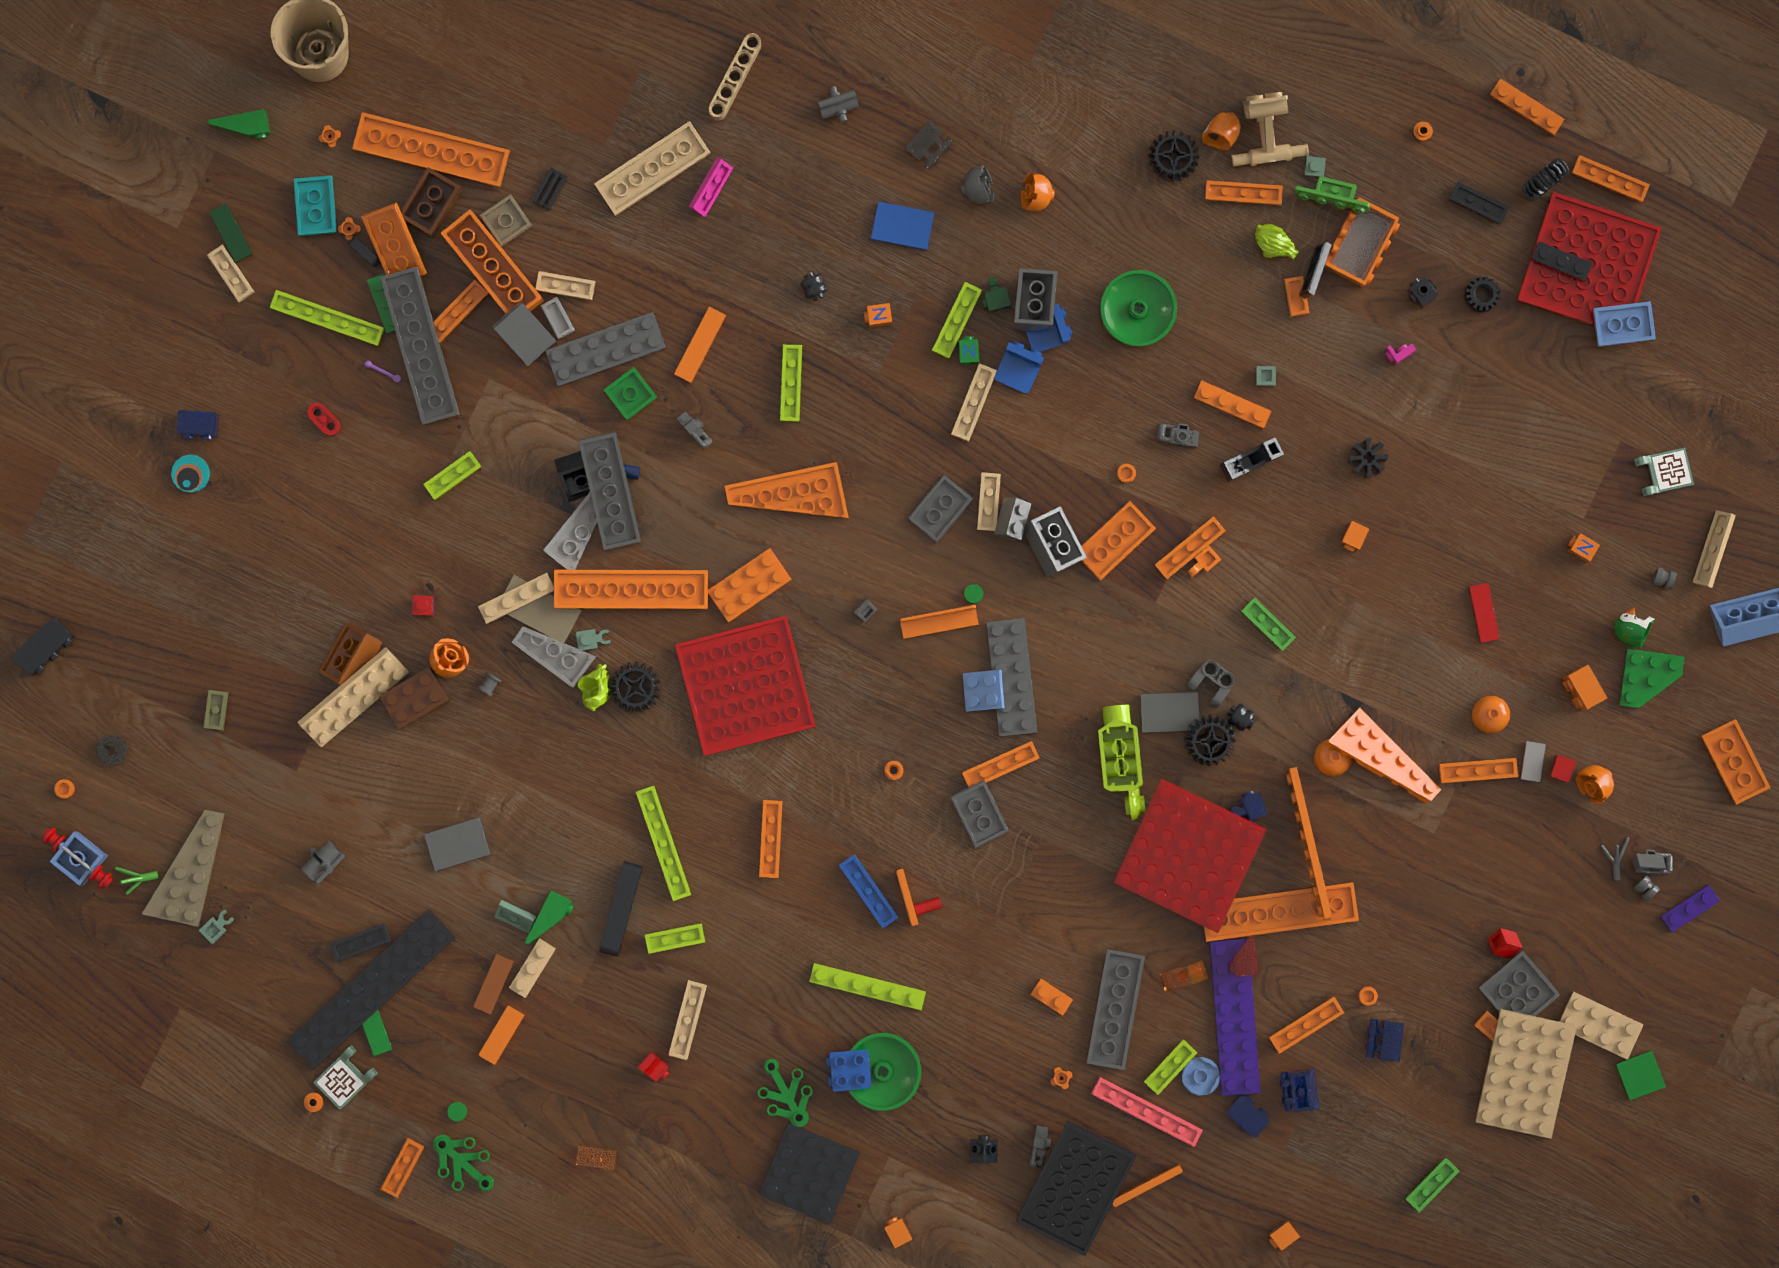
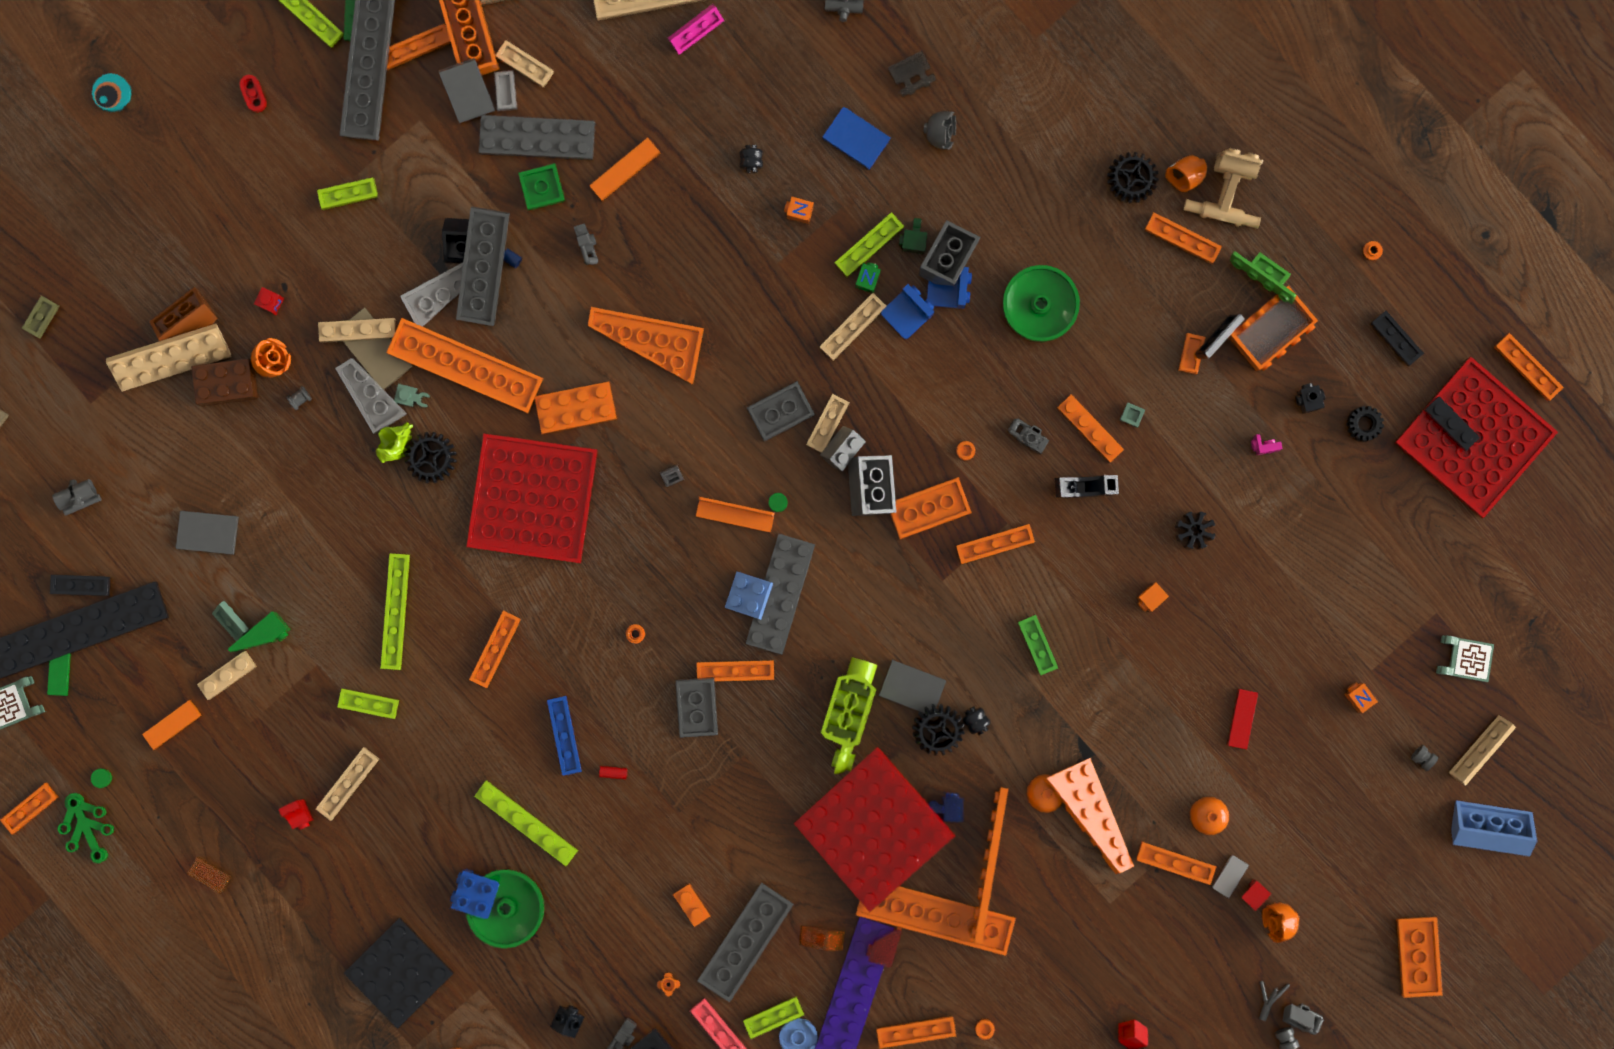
camera: 25 degrees right, 0 degrees up
(198, 424) = (137, 50): clear blue brick -> none
(368, 364) = (335, 84): medium lavender hinge -> none
(493, 984) = (185, 675): dark orange tile -> none
(620, 909) = (330, 655): black beam -> none
(787, 1095) = (409, 892): green plant -> none
(791, 383) = (692, 238): lime plate -> none
(907, 897) = (597, 756): orange tile -> none
(1037, 192) = (992, 159): orange cylinder -> none
(1205, 560) = (1005, 562): orange plate -> none
(1215, 679) = (967, 674): dark grey piece -> none
(1274, 242) = (1192, 295): lime hair -> none
(1314, 166) = (1258, 242): sand green plate -> none
(1526, 107) = (1478, 269): orange plate -> none
(1545, 179) = (1468, 341): black gear -> none
(1584, 688) = (1307, 829): orange brick -> none
(1624, 324) = (1486, 506): medium blue plate -> none
(1631, 629) = (1374, 793): green piece -> none
(1647, 675) = (1370, 841): green plate -> none

